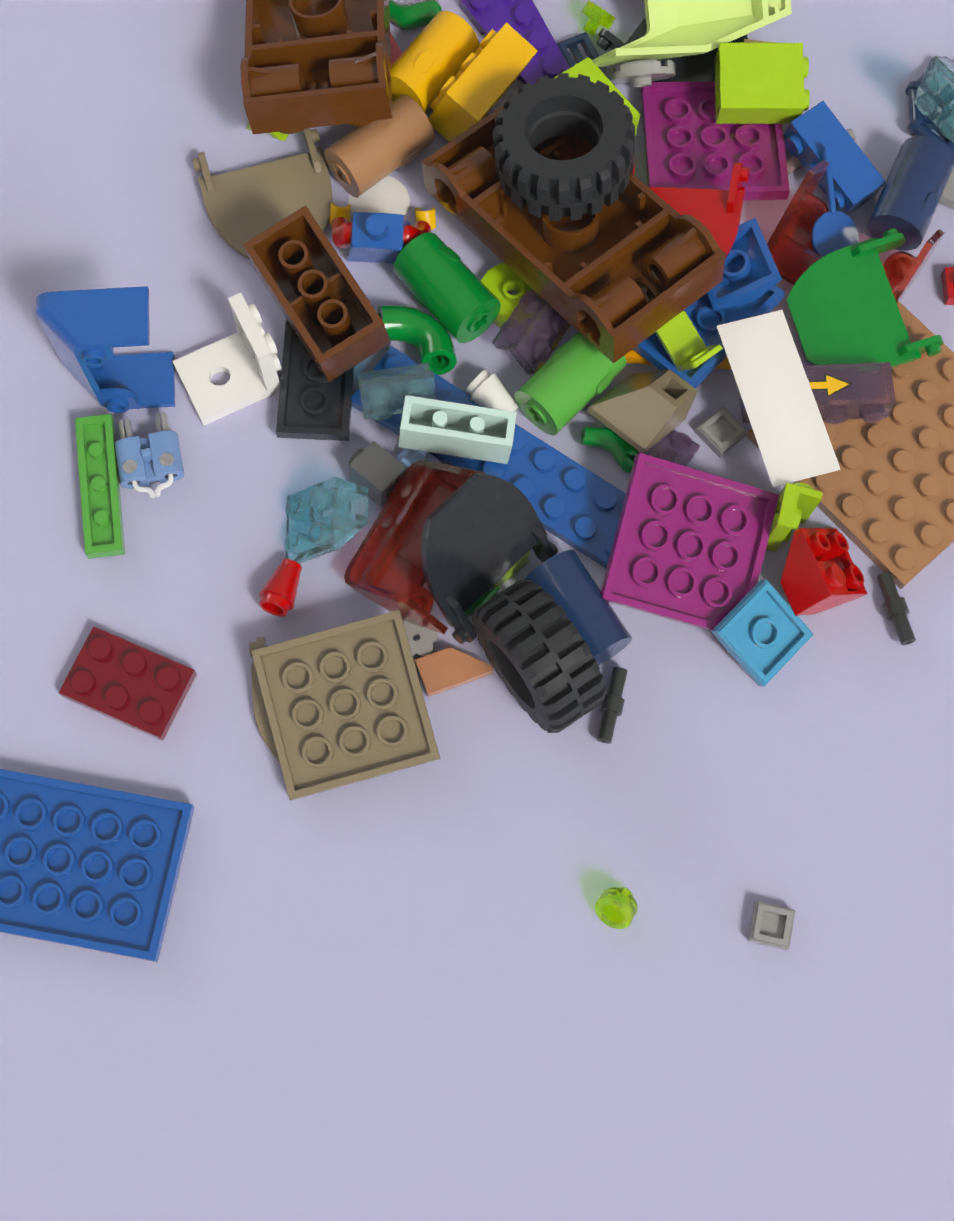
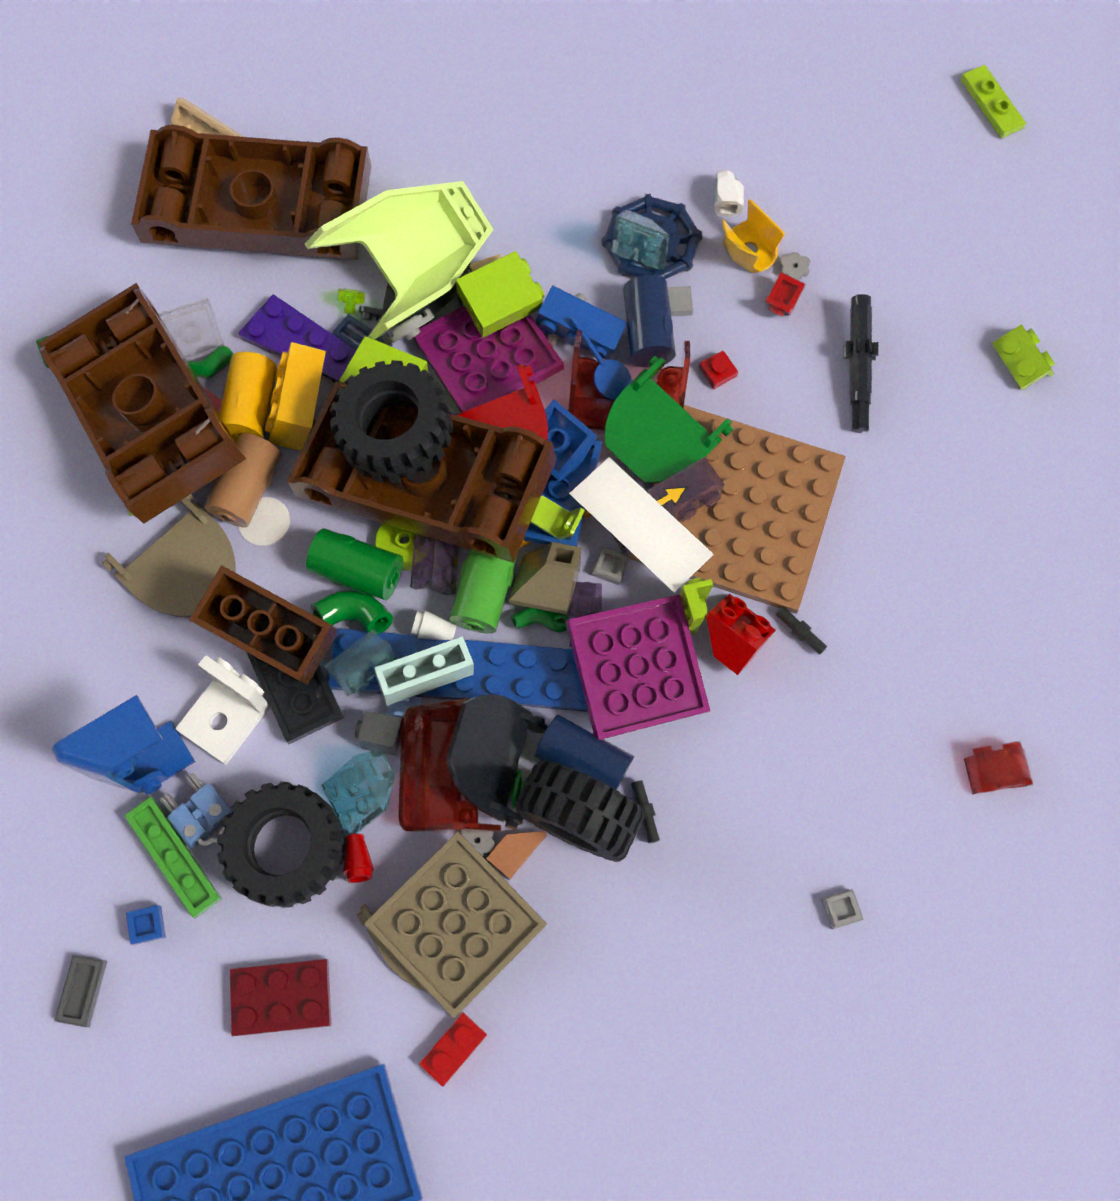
camera: 30 degrees left, 0 degrees up
(36, 537) = (145, 925): none -> blue plate
(205, 485) = (251, 816): none -> black tyre
(272, 833) = (453, 1049): none -> red plate
(376, 235) = (279, 551): blue torso -> none
(616, 907) = (731, 959): clear neon green tile -> none
(762, 632) = (721, 700): dark azure tile -> none

